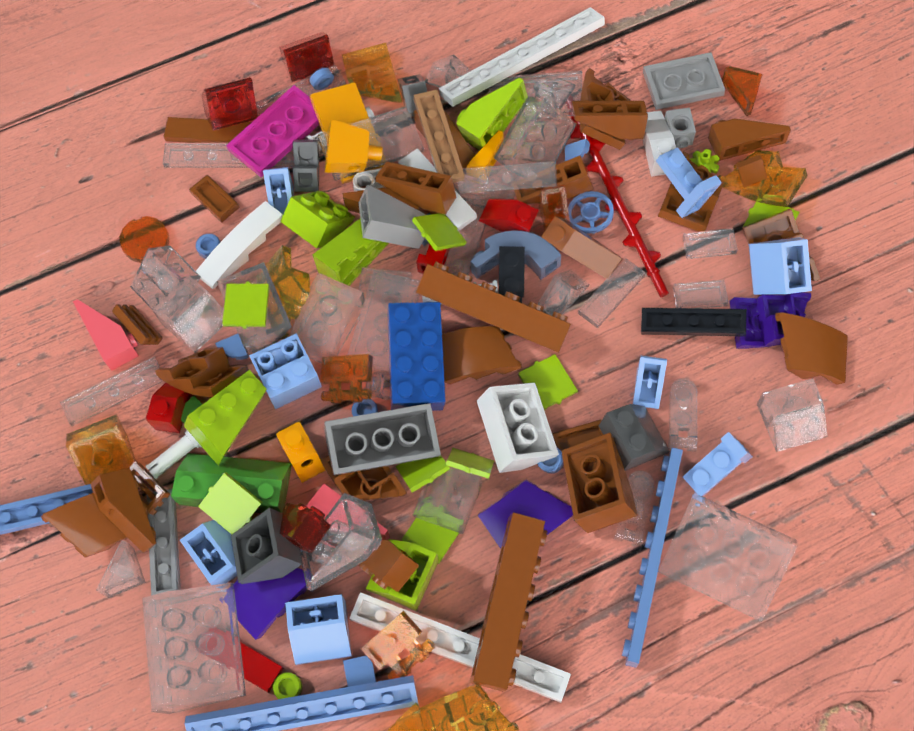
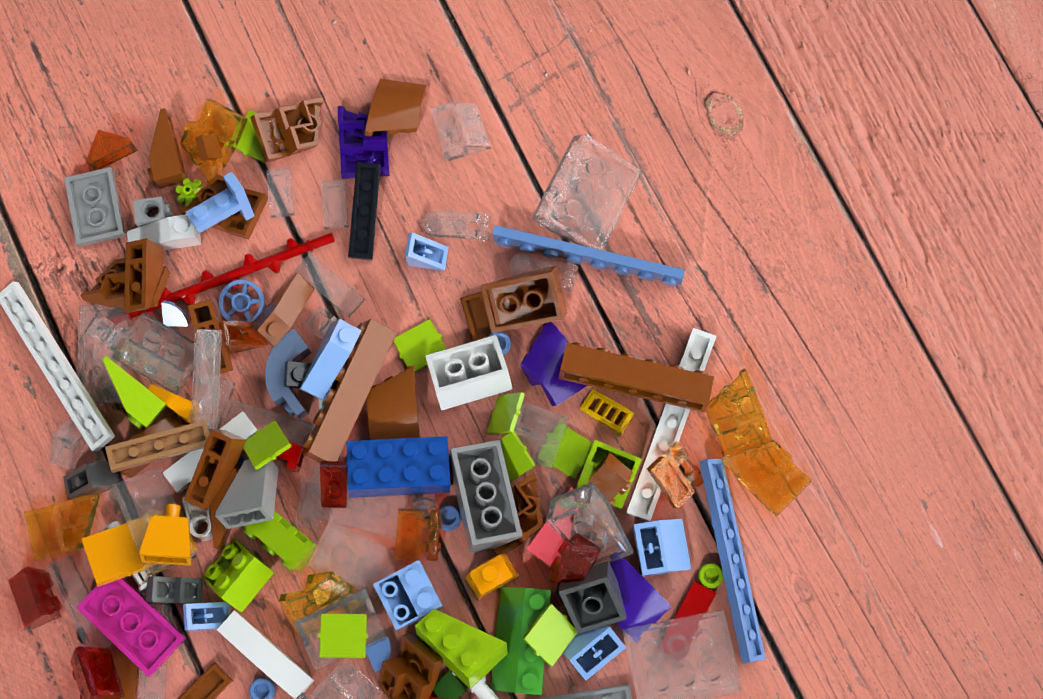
camera: 90 degrees left, 10 degrees up
(321, 79) = (69, 577): medium blue tile -> none
(359, 671) = (696, 511): medium blue tile -> none
(397, 291) = (333, 484): none -> clear red plate
(461, 593) = (618, 429): none -> yellow slope
(508, 215) = (246, 379): red slope -> none
(526, 285) = (330, 358): none -> light blue slope
(634, 435) = (477, 267): dark grey slope -> none
(717, 464) = (505, 196): light blue bracket -> none
(780, 266) = (315, 128): light blue slope -> none

